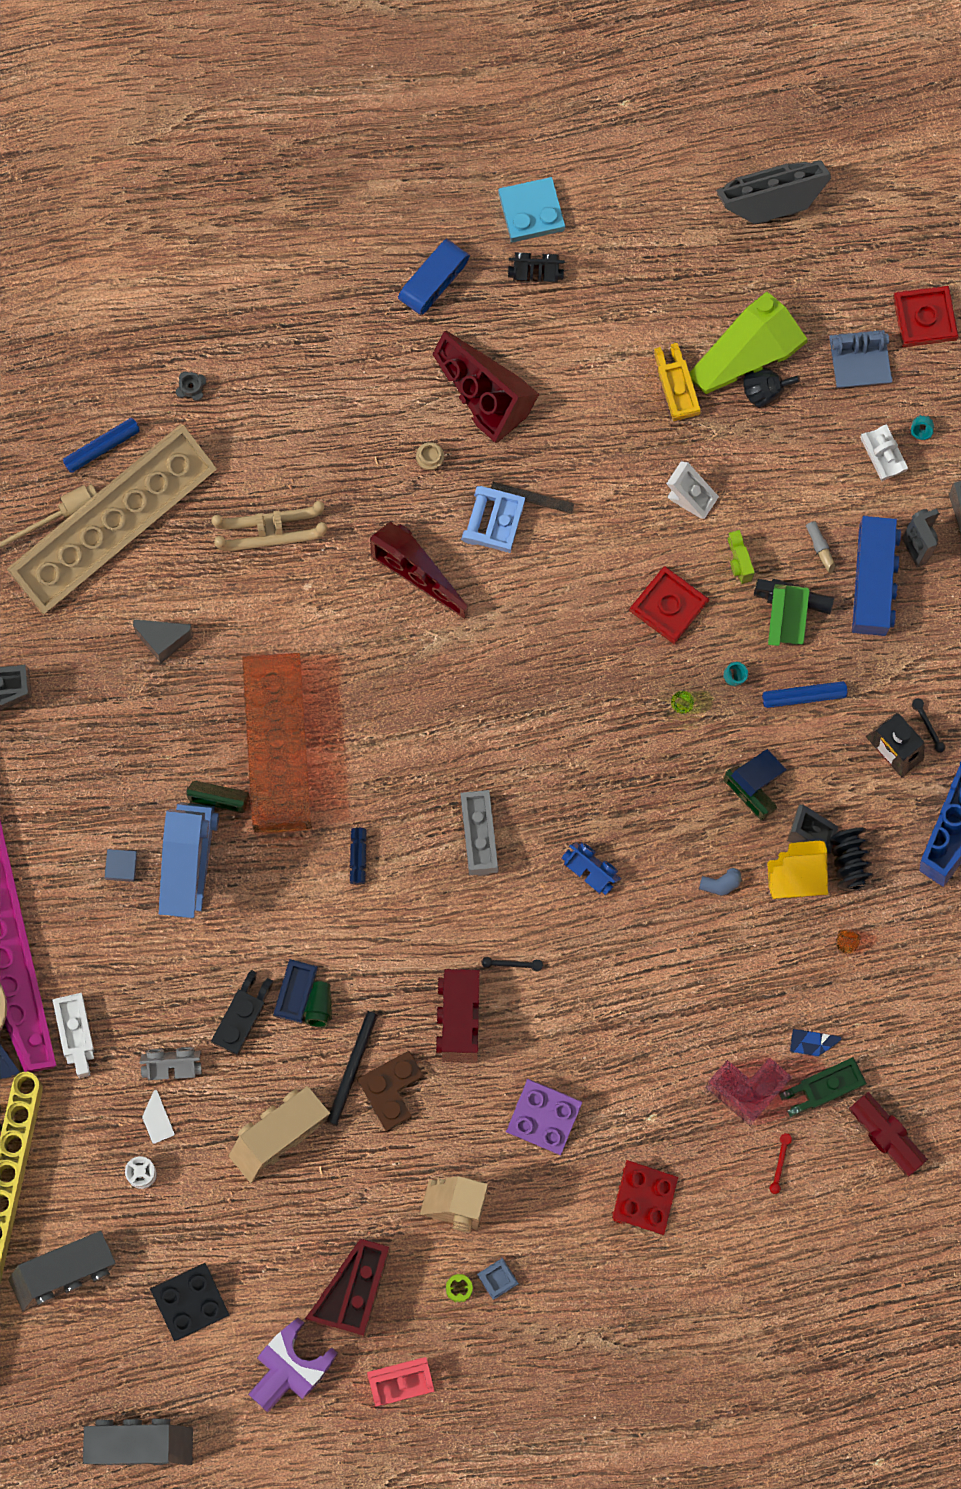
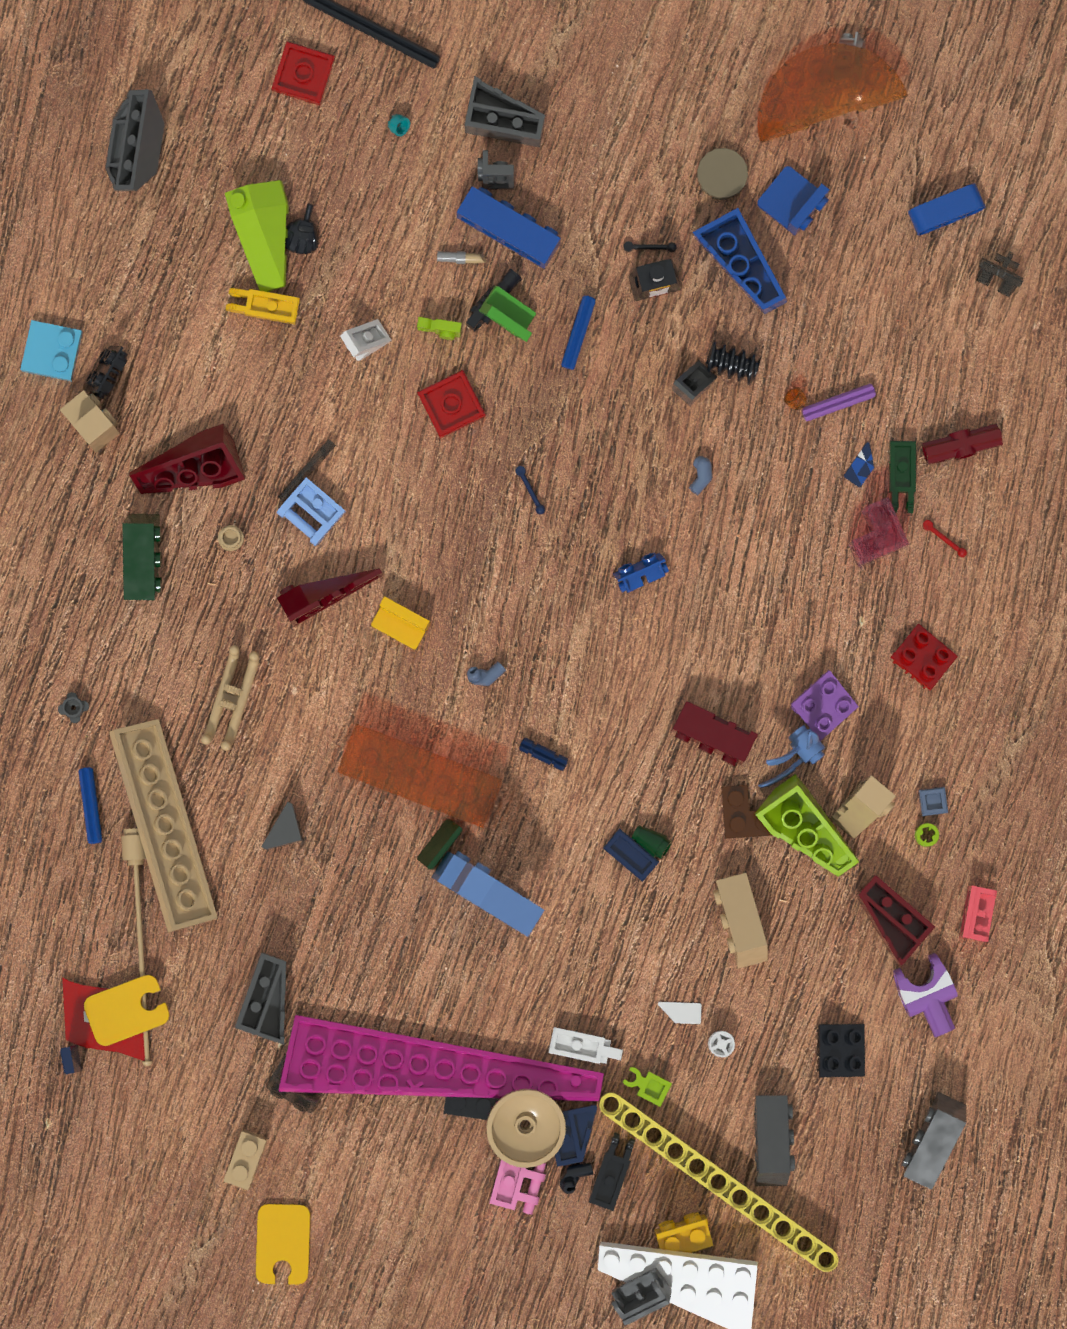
camera: 65 degrees left, 10 degrees up
(63, 1122) = (651, 1087): none -> lime plate
(120, 865) = (461, 949): sand blue tile -> none
(159, 1063) = (638, 990): light grey hinge -> none
(241, 1016) = (631, 907): black hinge -> none
(352, 1068) = (690, 815): black bar -> none
(369, 378) = (141, 556): none -> dark green wedge
(409, 763) = (485, 677): none -> sand blue arm
(410, 1149) = (800, 821): none -> lime wedge
(423, 655) = (400, 623): none -> yellow panel
(433, 277) = (74, 460): blue beam -> none
(478, 272) = (93, 425): none -> tan brick
(479, 833) = (571, 648): light grey hinge -> none
(491, 1119) = (806, 745): none -> medium blue plant
(536, 965) = (698, 653): black hinge -> none
(635, 703) = (520, 471): none -> dark blue hinge
(686, 696) = (542, 438): clear neon green hinge -> none
(740, 674) = (536, 375): teal hinge -> none
(758, 772) = (628, 401): dark blue tile -> none
(759, 803) = (638, 416): dark green slope -> none
(799, 871) = (724, 409): yellow piece -> none
(860, 358) = (315, 144): sand blue hinge -> none
(867, 987) = (838, 402): none -> medium lavender axle
(884, 452) = (407, 167): white hips -> none

